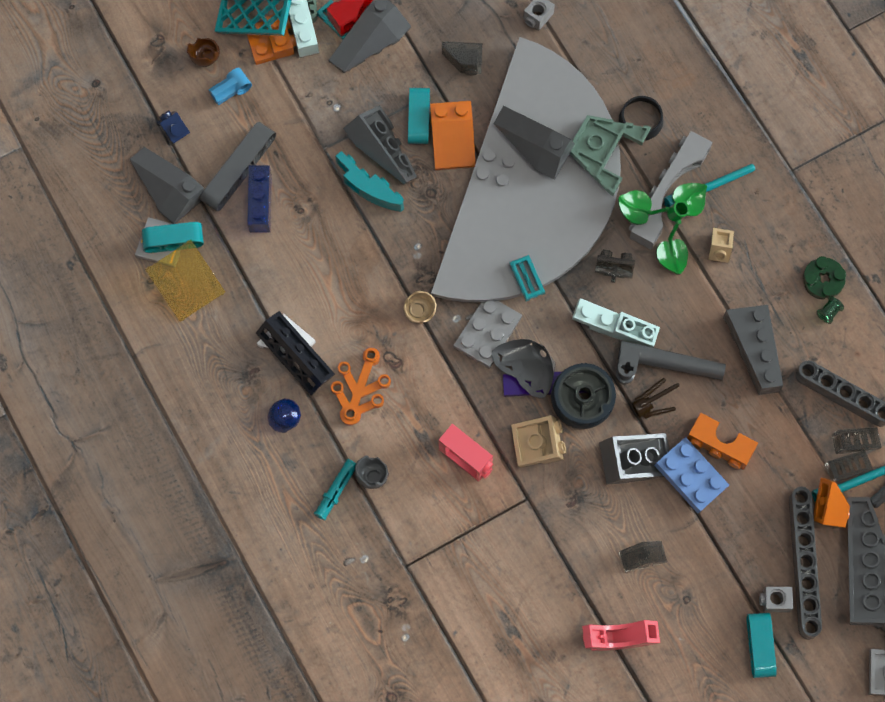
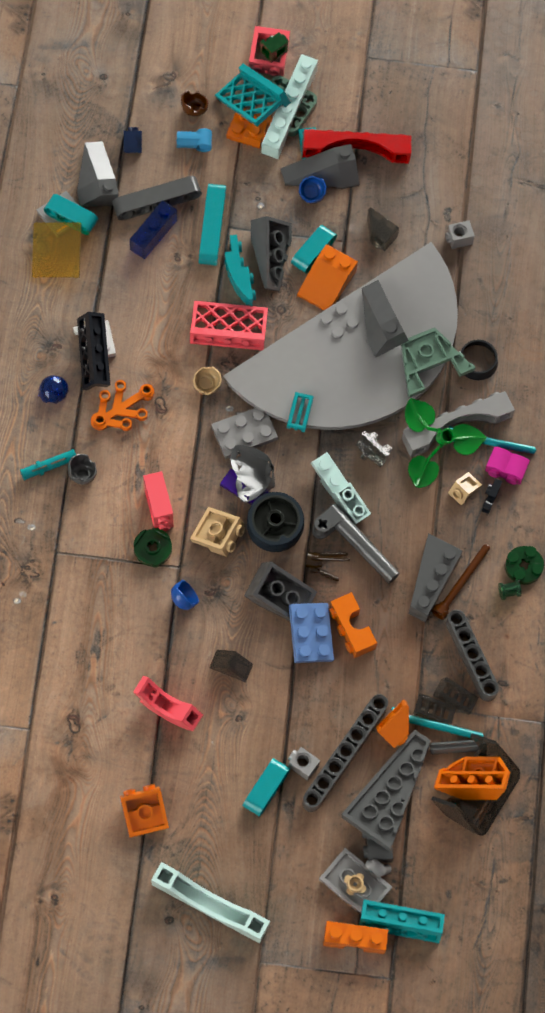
camera: 30 degrees right, 5 degrees down
(309, 156) = (212, 224): none -> teal beam
(375, 60) = (312, 189): none -> blue hair
(403, 255) = (228, 337): none -> coral fence
(498, 489) = (143, 552): none -> dark green plate
(554, 523) = (184, 595): none -> blue hair
(742, 198) = (507, 465): none -> dark pink brick
(748, 230) = (492, 491): none -> black plate
(786, 369) = (441, 610): none -> reddish brown piece

